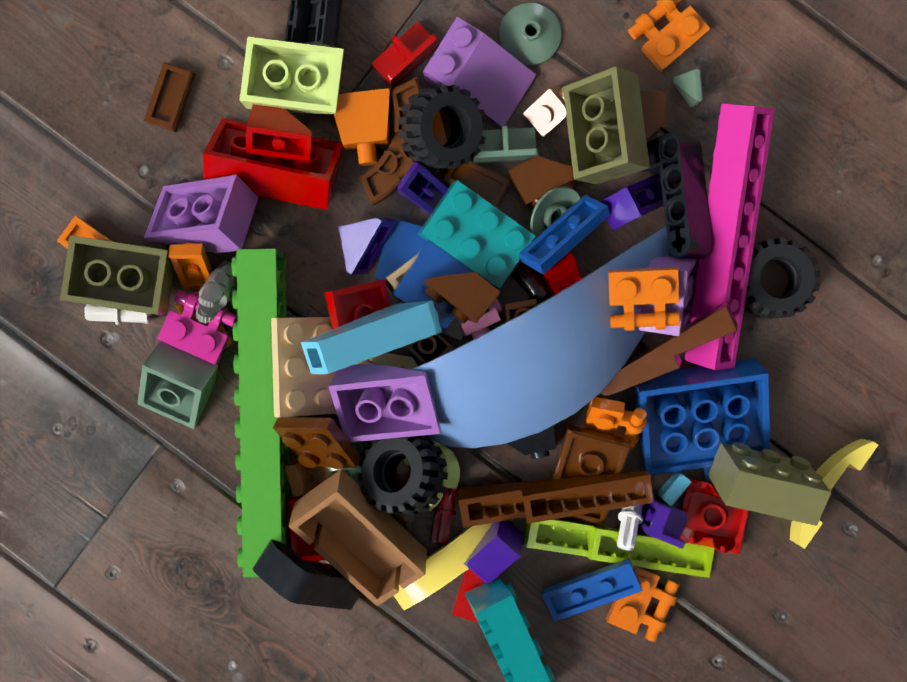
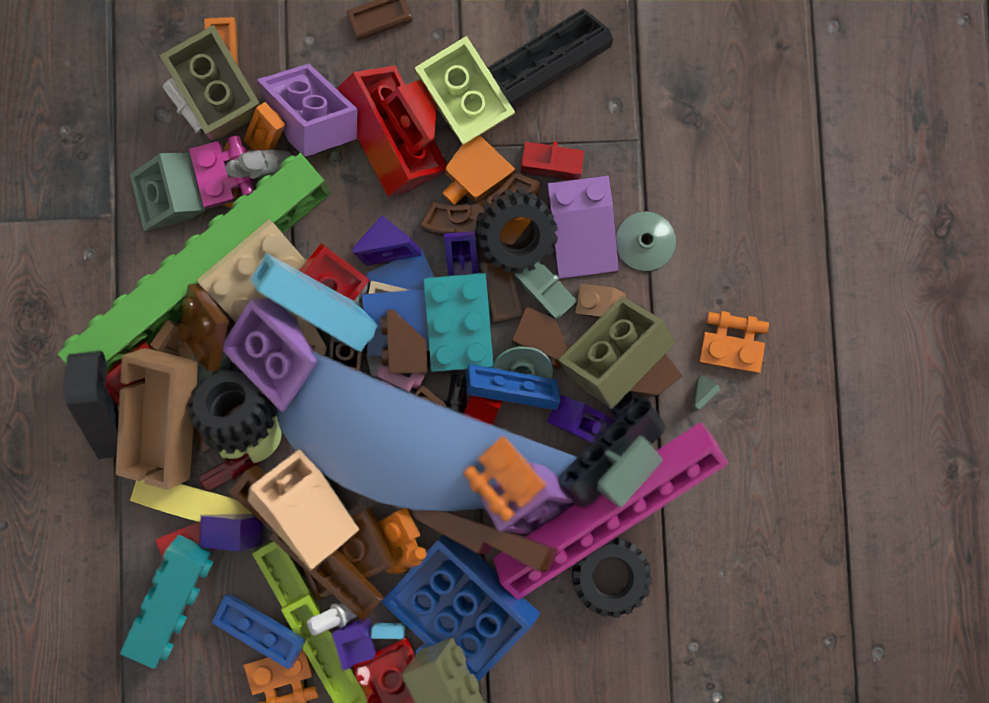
camera: 55 degrees right, 5 degrees down
(530, 479) = (303, 509): none -> light nougat slope
(715, 194) = (629, 471): none -> sand green panel

